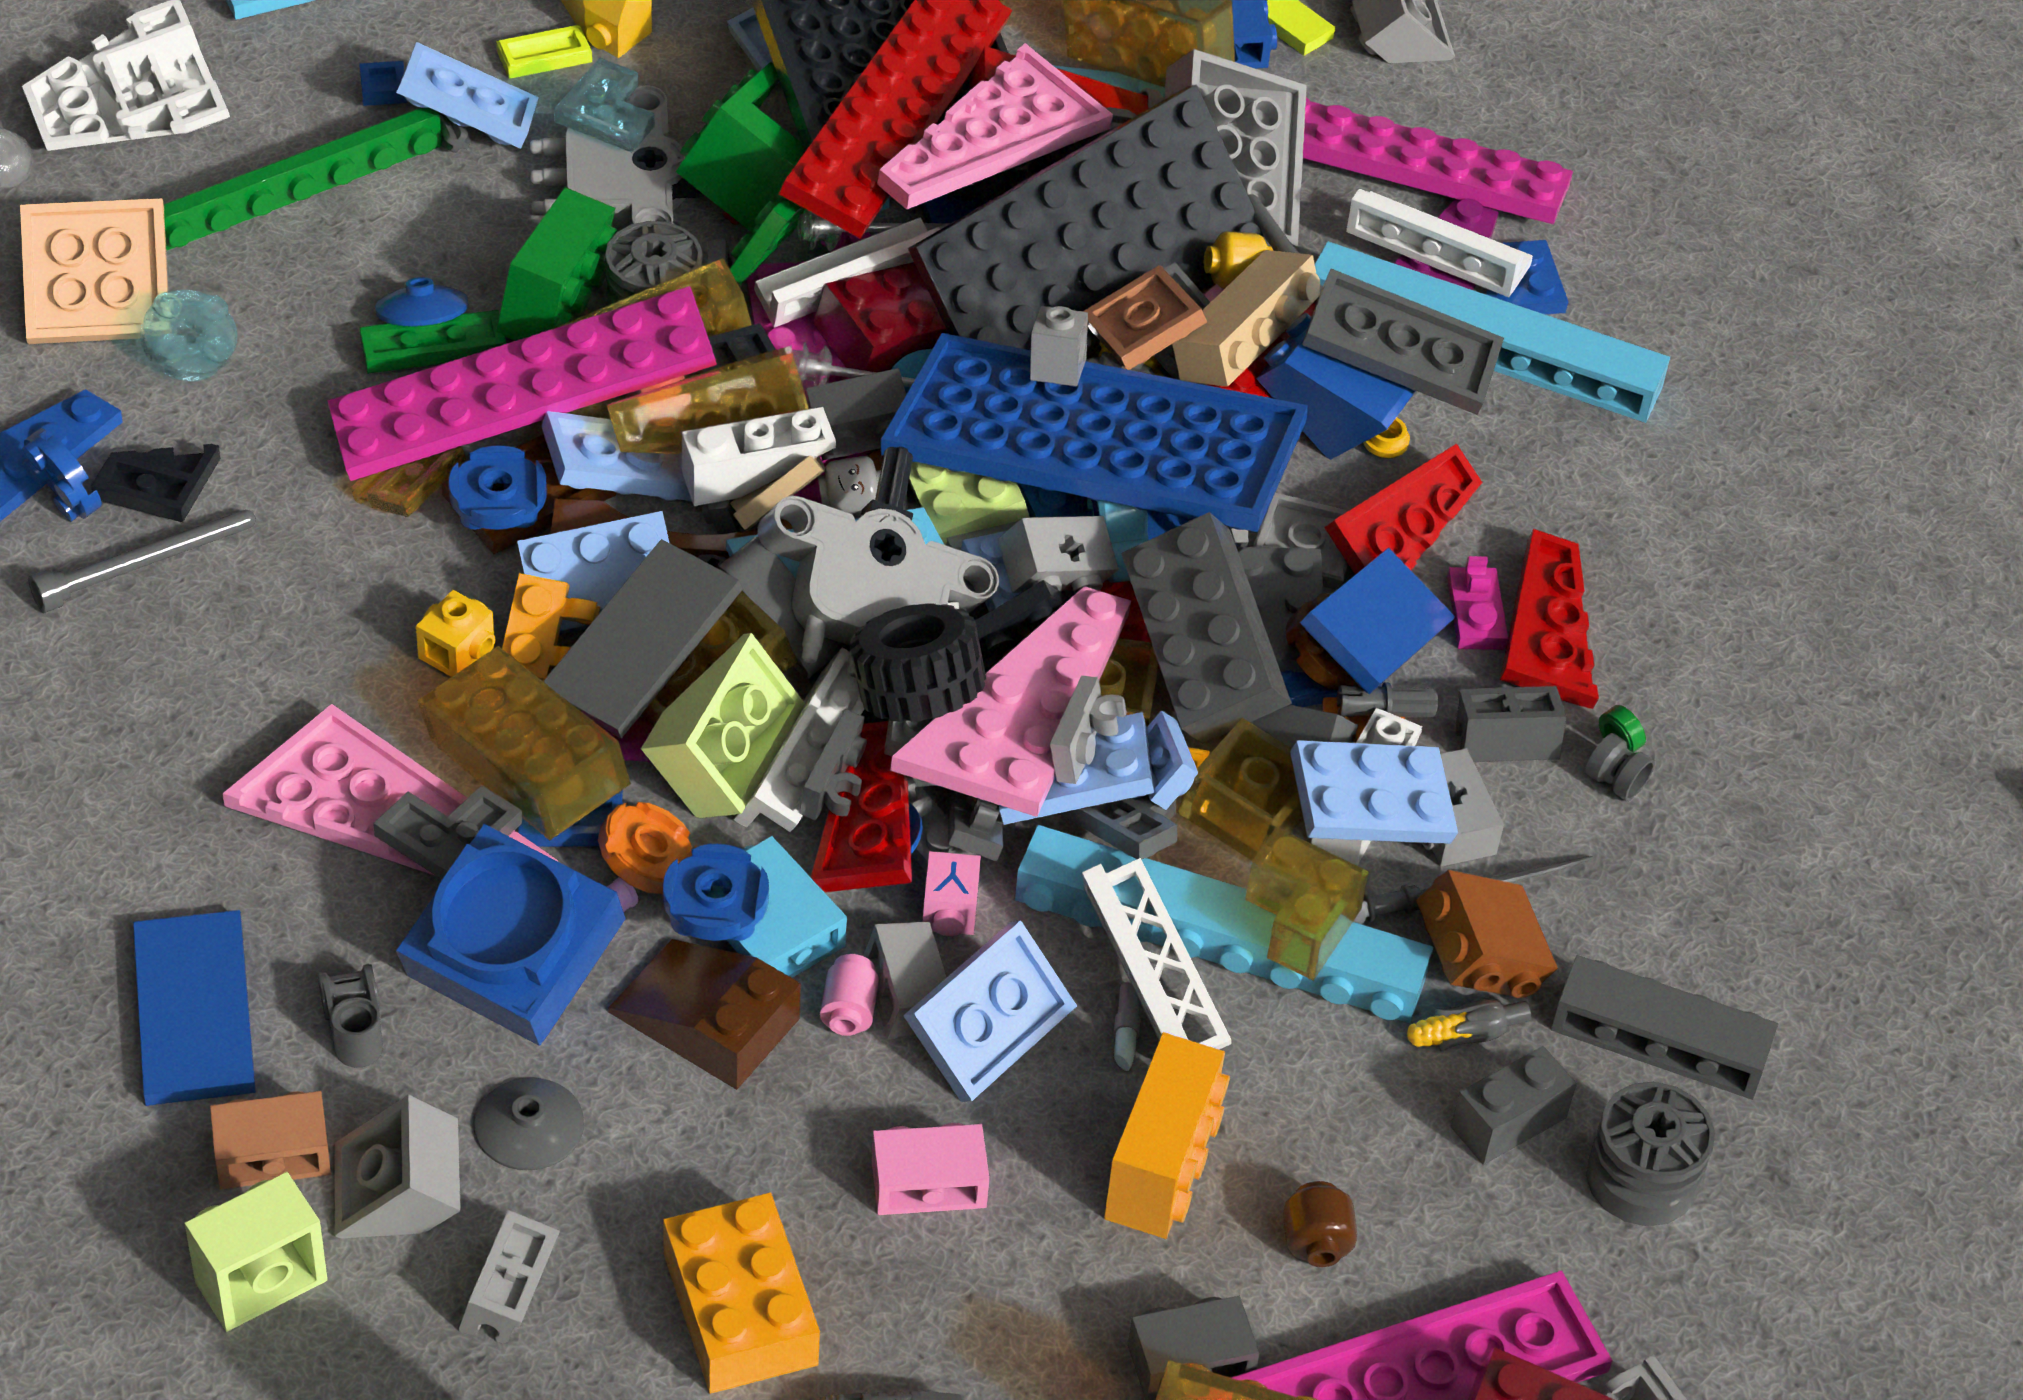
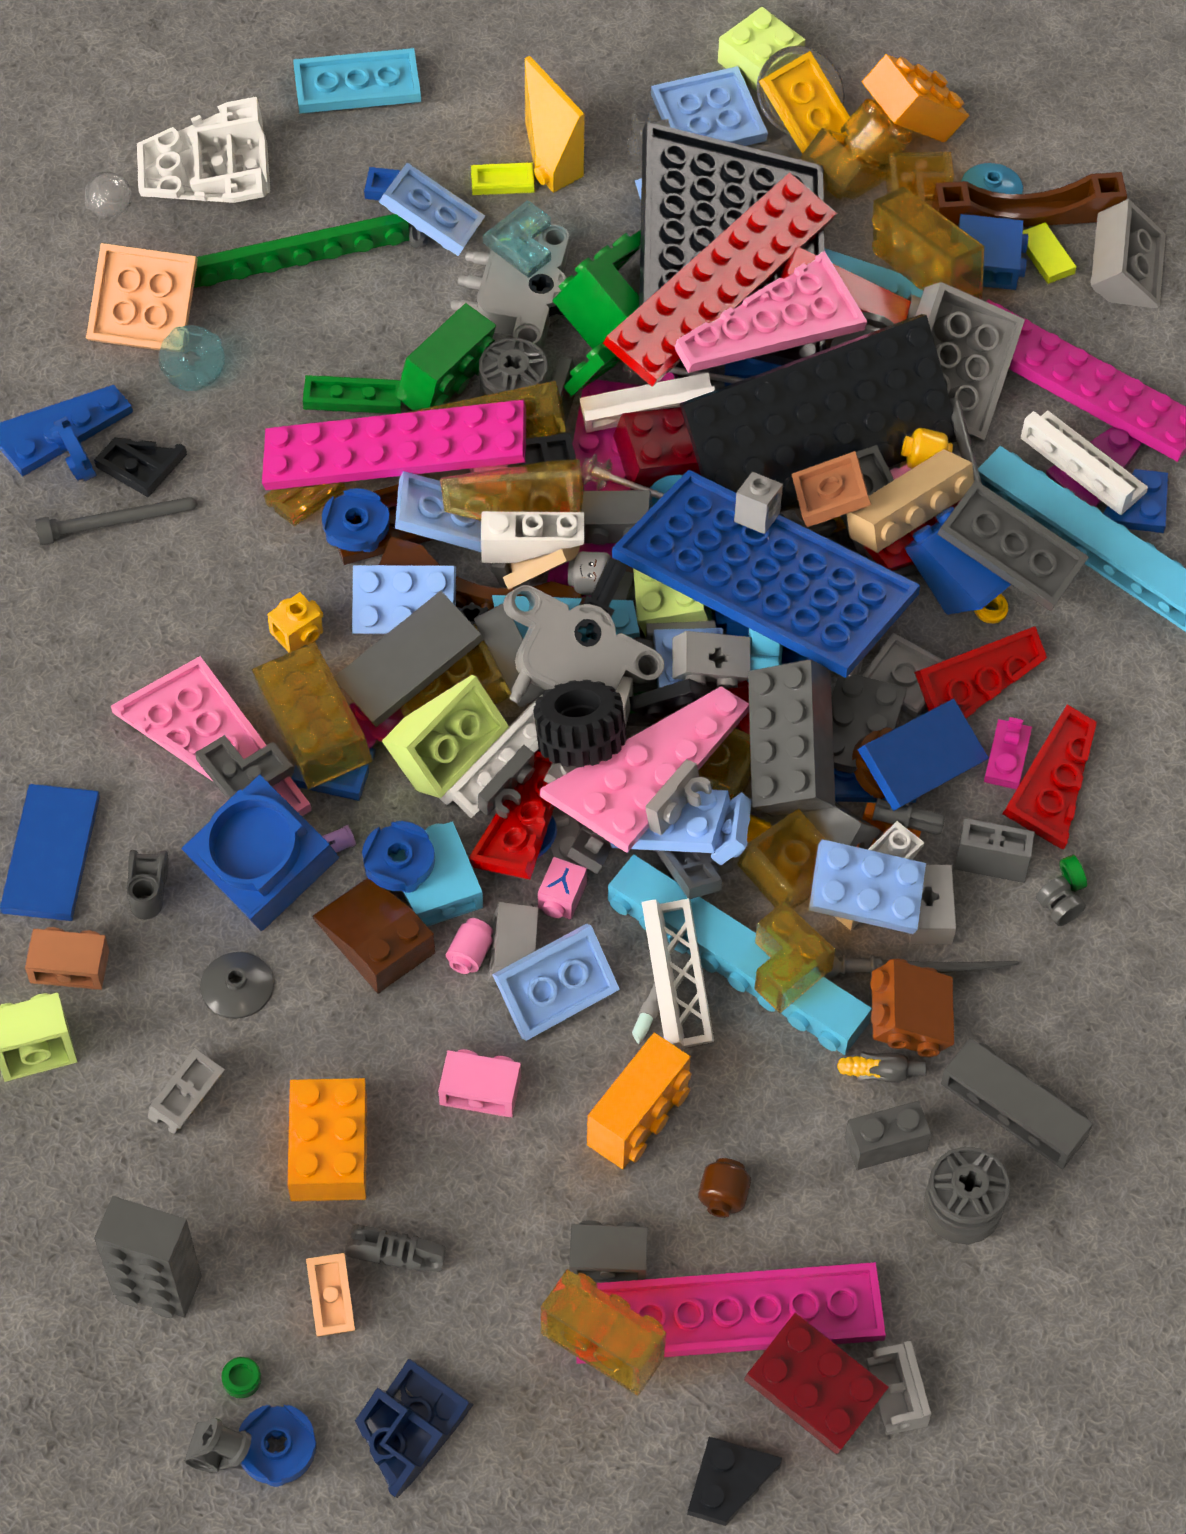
camera: 20 degrees right, 10 degrees up
(397, 1172) = (140, 1001): light grey slope -> none
(421, 304) = (353, 365): blue dish -> none
(537, 620) = (350, 627): light orange plate -> none
(642, 844) = (370, 804): orange tile -> none

